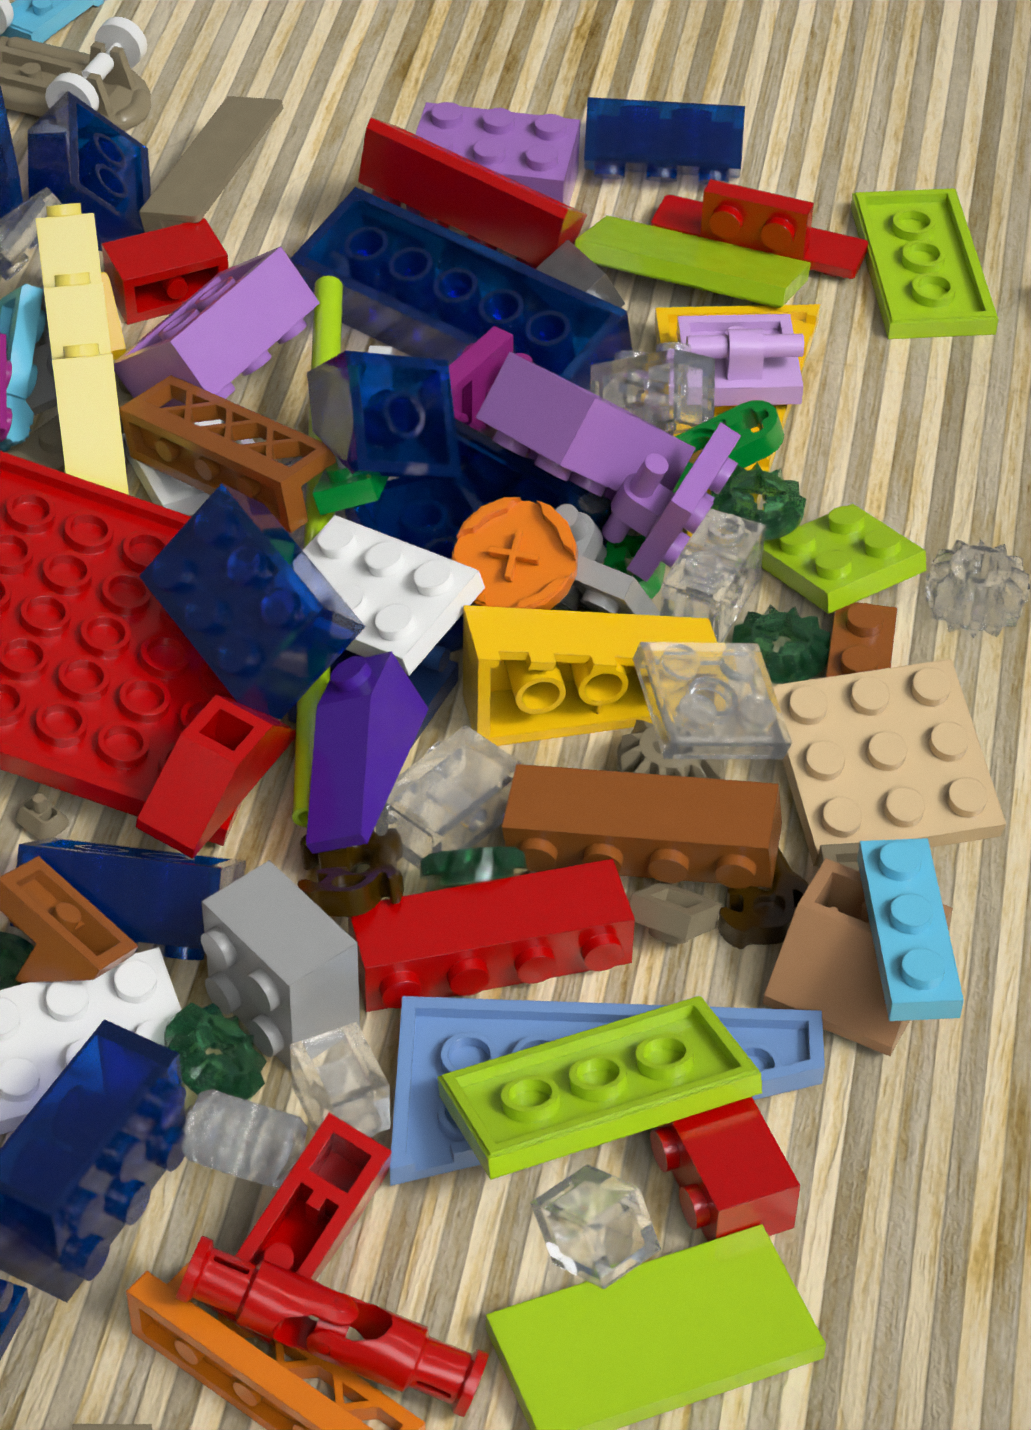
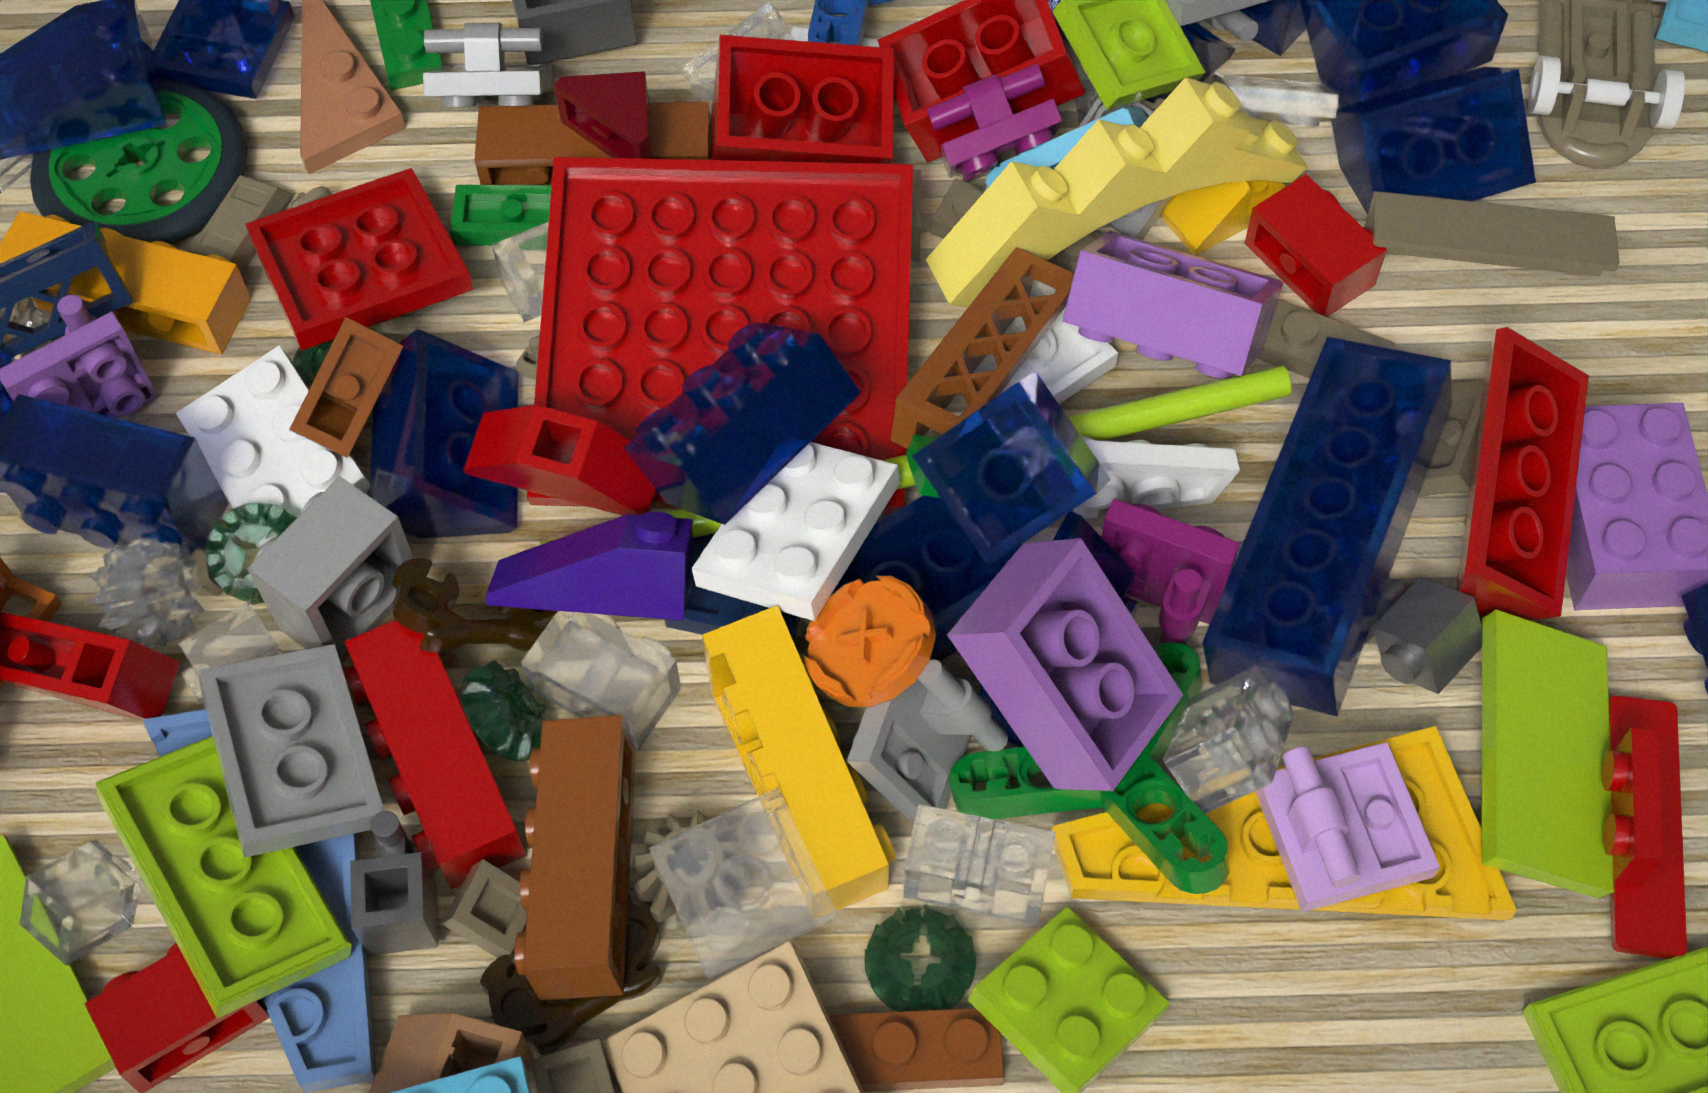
camera: 80 degrees right, 15 degrees up
(484, 1010) = (290, 749): none -> light grey plate
(654, 965) = (393, 894): none -> flat silver brick
(661, 513) = (983, 787): medium lavender plate -> none
(782, 498) = (1084, 912): clear green gear -> none

